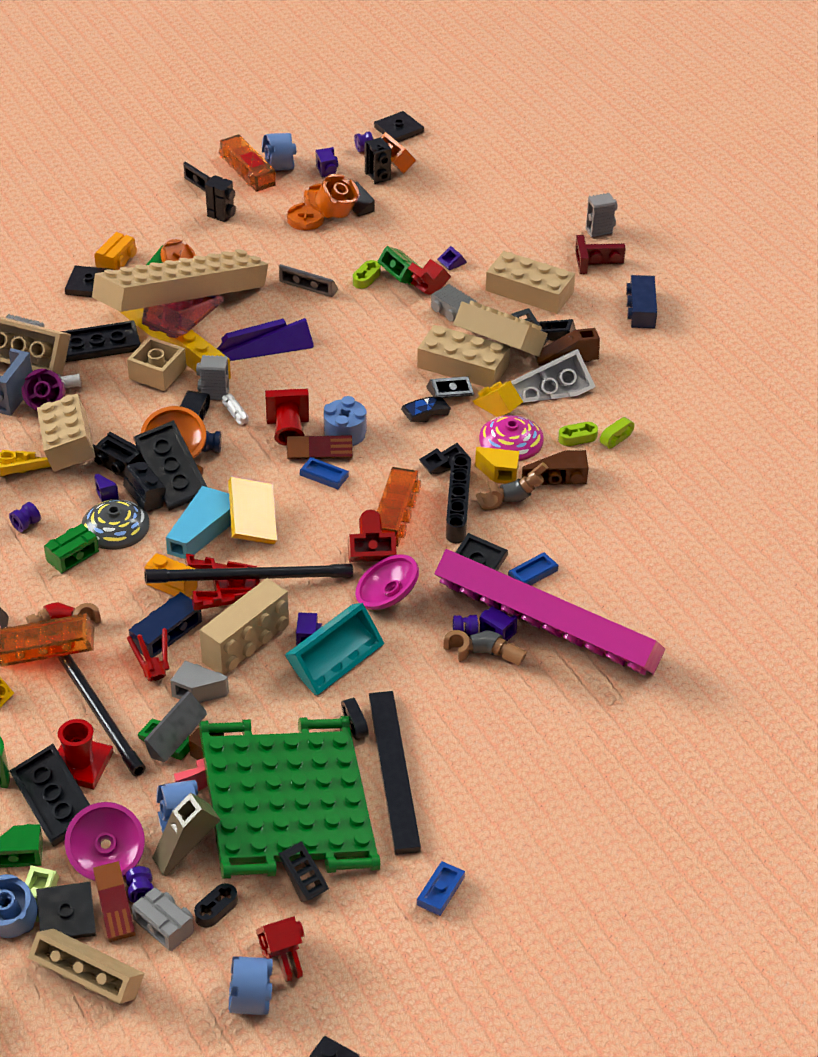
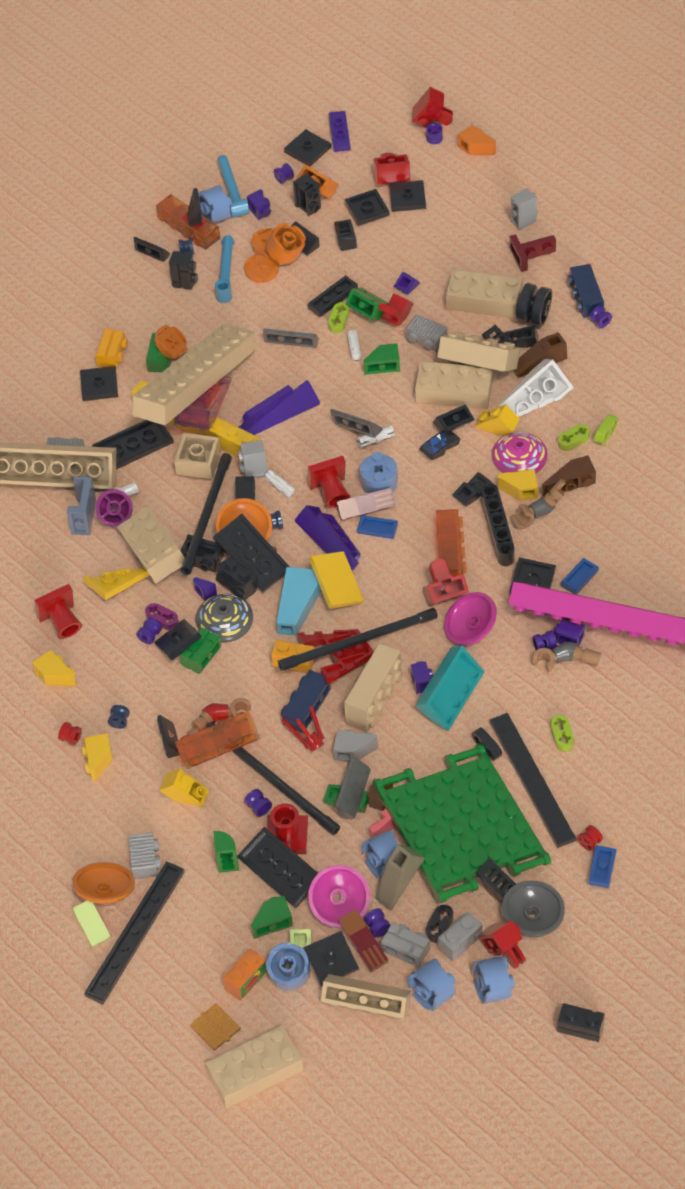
camera: 10 degrees left, 10 degrees up
(50, 530) = (177, 639): none -> black plate
(51, 504) = (163, 615): none -> magenta beam
(57, 714) = (256, 800): none -> dark purple wheel
(97, 451) = (189, 559): none -> black piece
(171, 972) = (432, 985): none -> medium blue brick
(231, 925) = (459, 936): none -> light grey brick
(238, 182) = (186, 246): none -> dark blue wheel
(255, 146) = (194, 210): none -> black slope
(256, 222) = (223, 285): none -> dark azure piece
(265, 466) = (327, 533): none -> dark purple wedge
(305, 159) = (239, 206): none -> dark azure piece
(334, 903) = (534, 899): none -> dark grey dish
(340, 368) = (355, 423): none -> flat silver slope
(356, 257) = (332, 296): none -> black plate
(358, 387) = (366, 440): none -> white pin
(372, 301) = (354, 345): none -> white axle
(395, 319) = (382, 360): none -> green slope
(405, 206) = (345, 236): none -> black slope
(437, 120) = (339, 131): none -> dark purple plate
(437, 185) = (367, 207): none -> black plate
(437, 851) = (590, 837): none -> red wheel
(454, 728) = (558, 734): none -> lime beam
(476, 157) = (391, 168): none -> red brick
(484, 185) = (407, 195): none -> black plate
(534, 138) = (434, 133): none -> dark purple wheel
(537, 114) = (431, 108): none -> red brick
(574, 153) = (476, 142): none -> orange slope
(579, 299) = (534, 304): none -> black wheel
(649, 327) = (600, 316): none -> dark purple wheel

